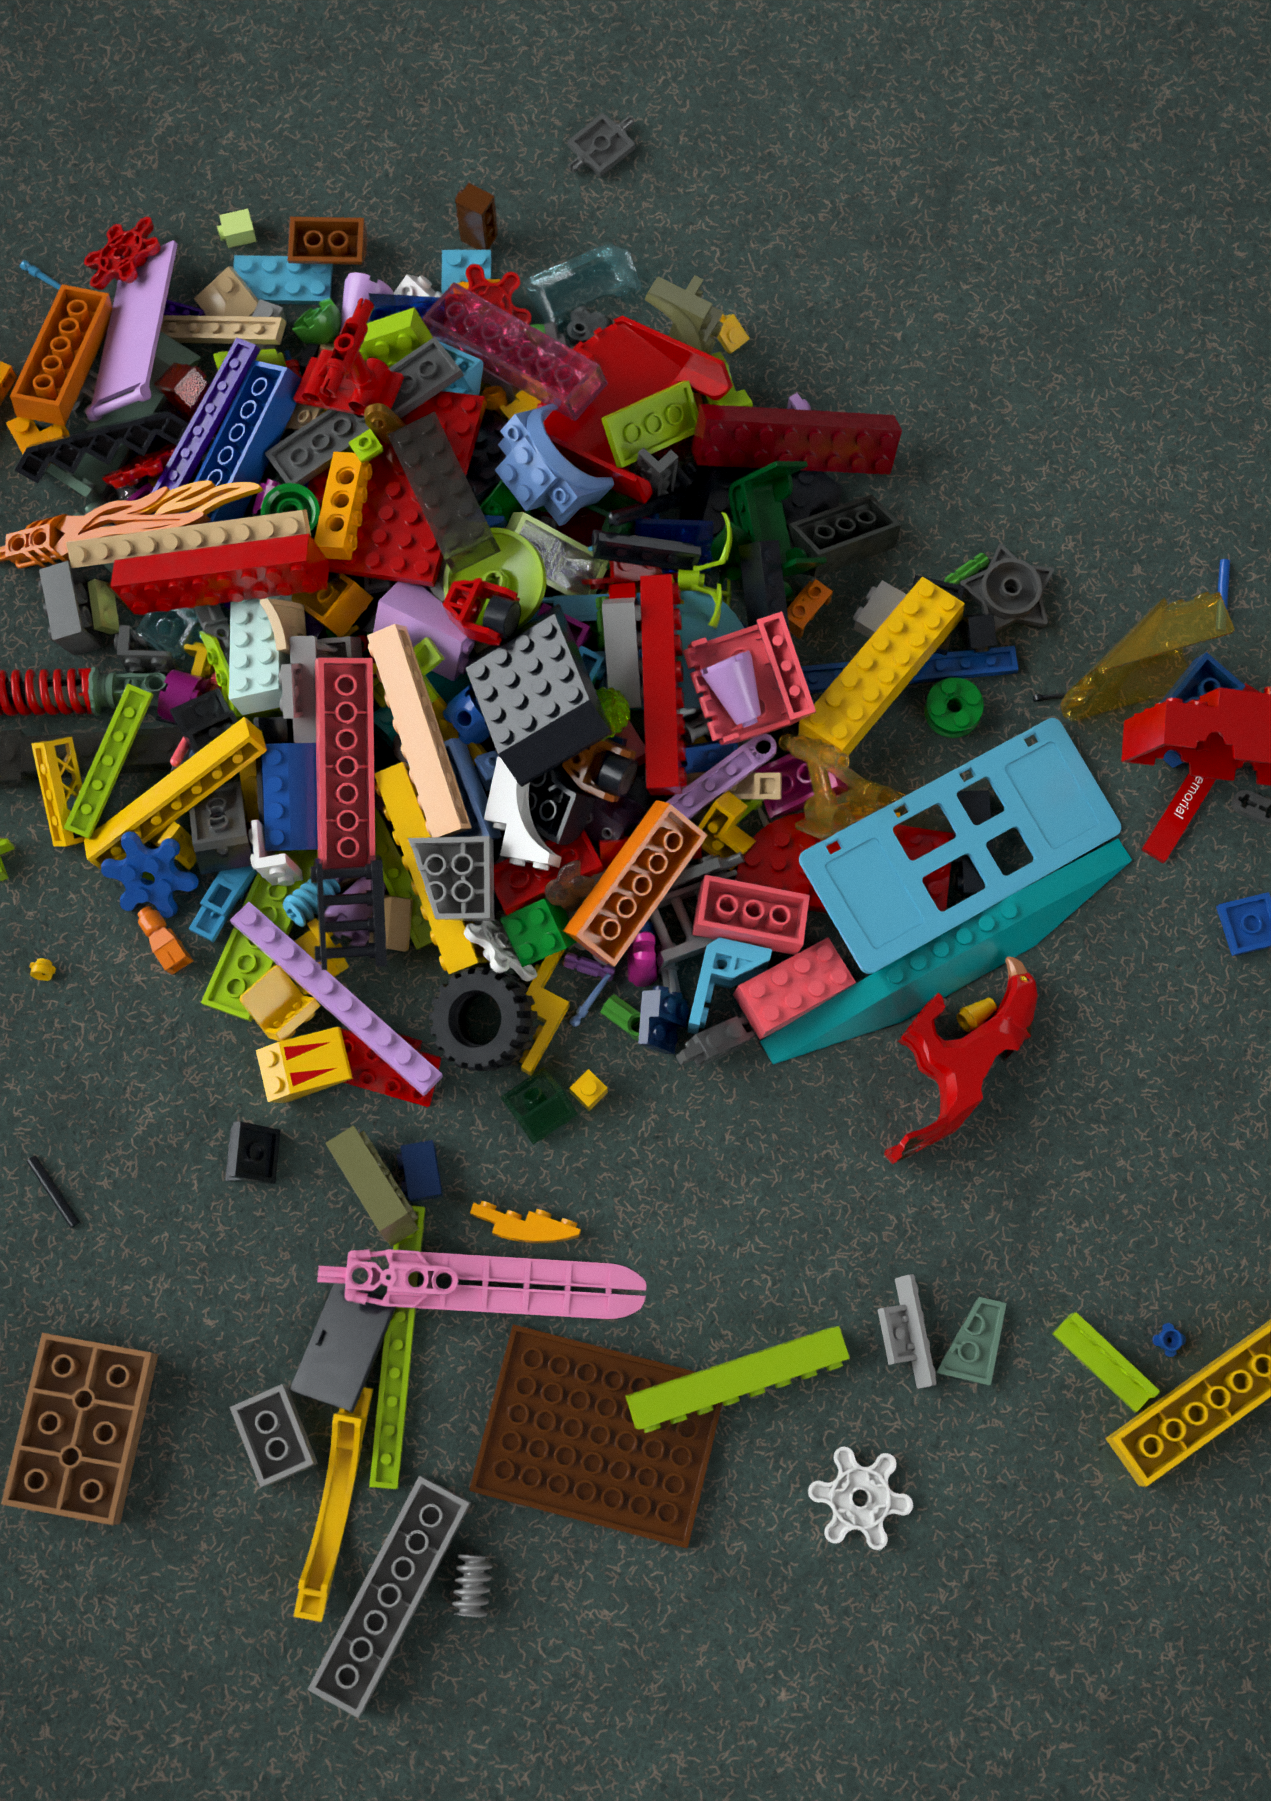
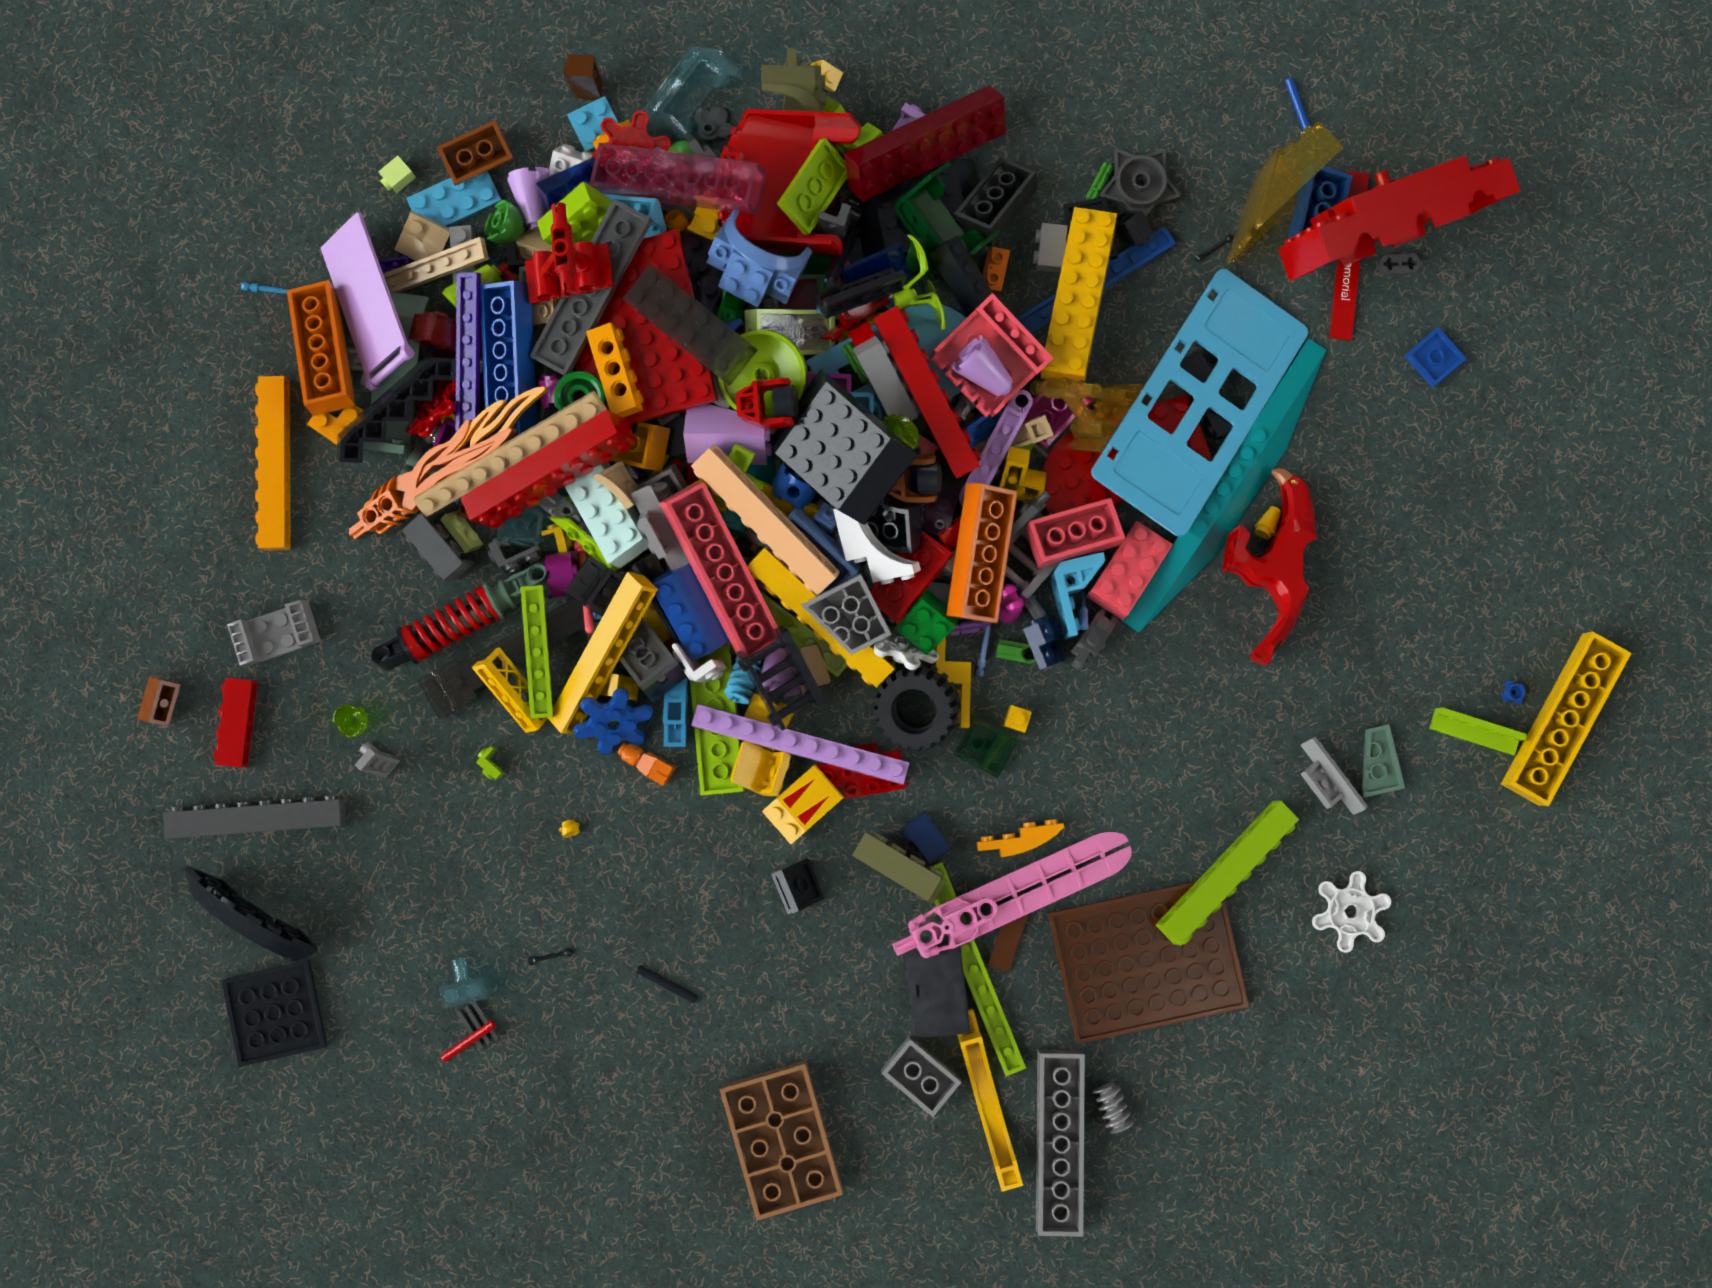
camera: 25 degrees left, 10 degrees up
(130, 244) = (309, 246): red plate -> none
(366, 446) = (609, 315): lime bracket -> none
(382, 421) = (613, 289): pearl gold plate -> none
(451, 1335) = (1006, 944): none -> reddish brown tile
(571, 887) = (935, 581): clear smoke plate -> none
(719, 1010) = (1083, 612): none -> medium blue piece
(957, 692) = (1145, 283): green wheel -> none

